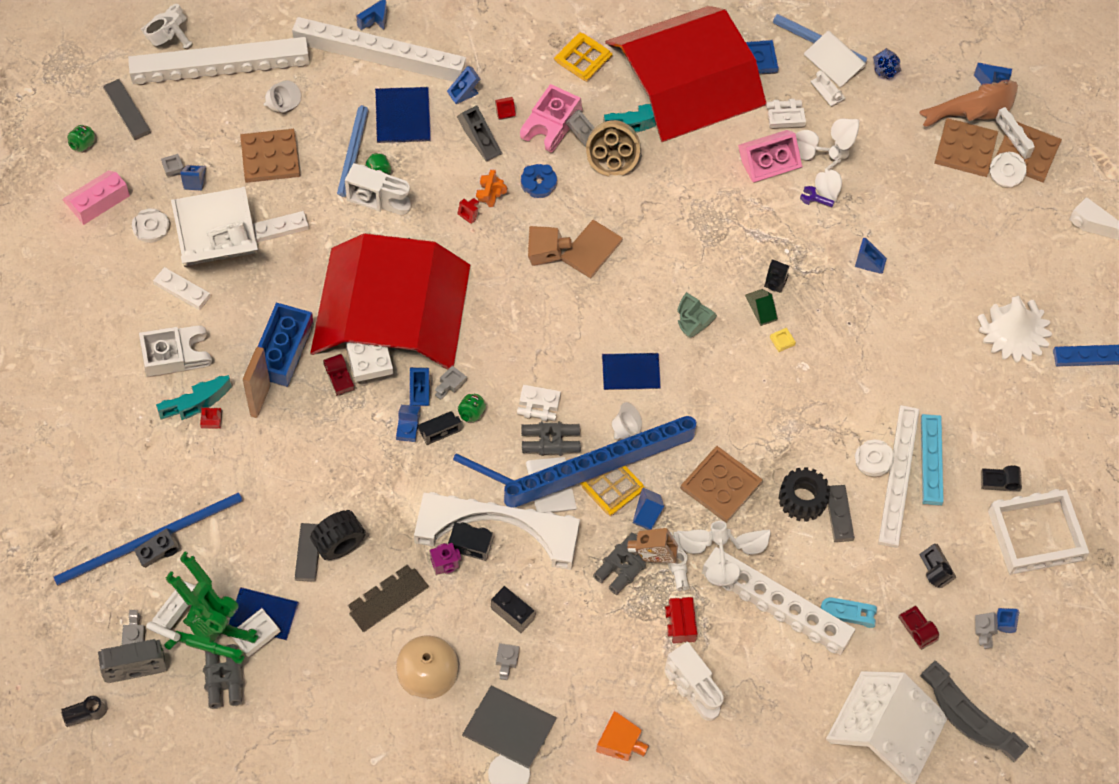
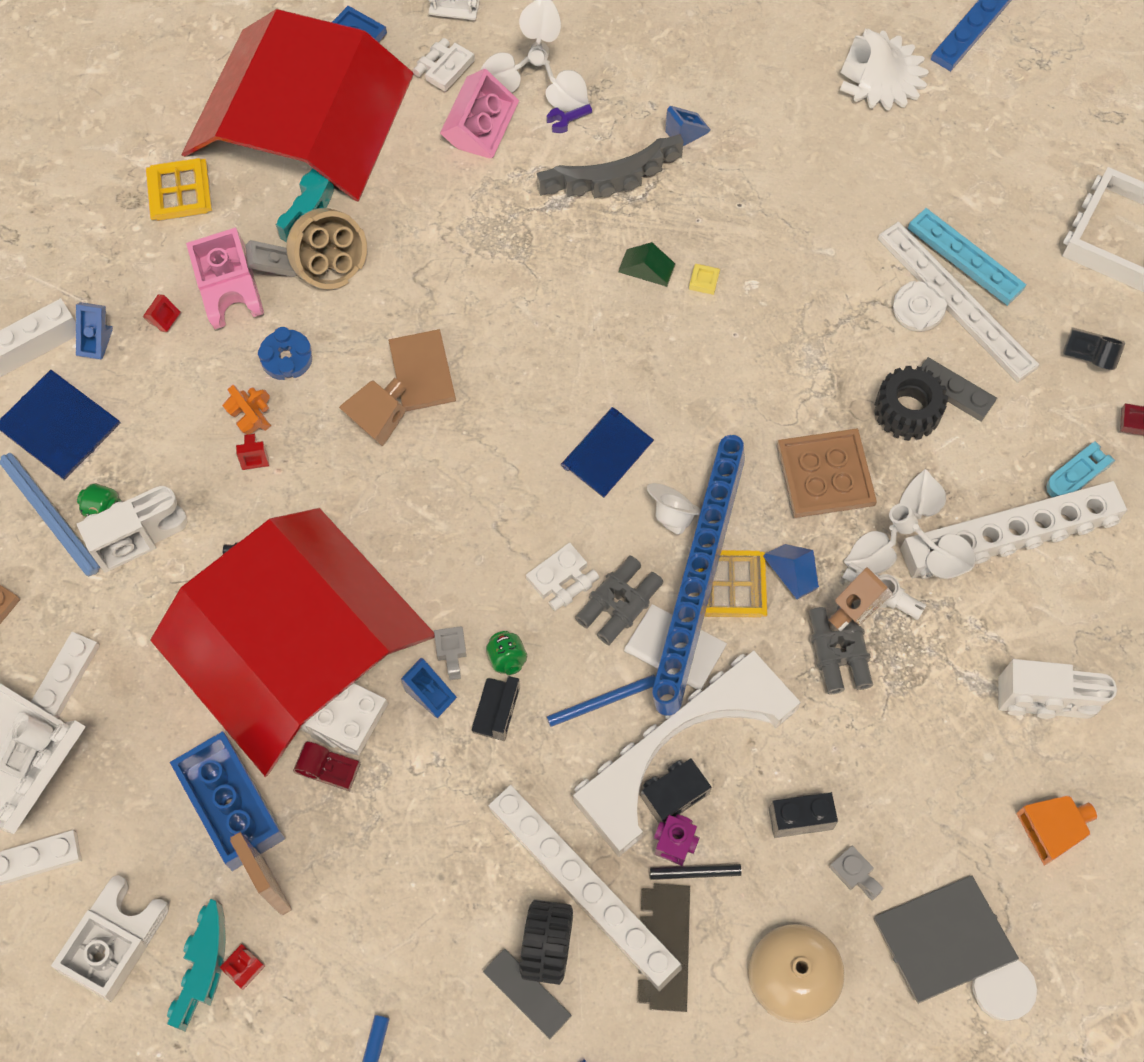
camera: 45 degrees left, 5 degrees up
(381, 534) = (586, 888): none -> white brick
(408, 423) = (459, 738): blue slope -> none
(438, 583) = (700, 871): none -> black bar
(479, 132) = (165, 363): dark grey slope -> none
(682, 620) = (959, 644): red brick -> none
(693, 315) = (598, 337): sand green brick -> none
(776, 276) = (631, 223): black plate -> none
(800, 248) = (611, 176): none -> dark grey piece
(1002, 479) = (1042, 213): black plate -> none

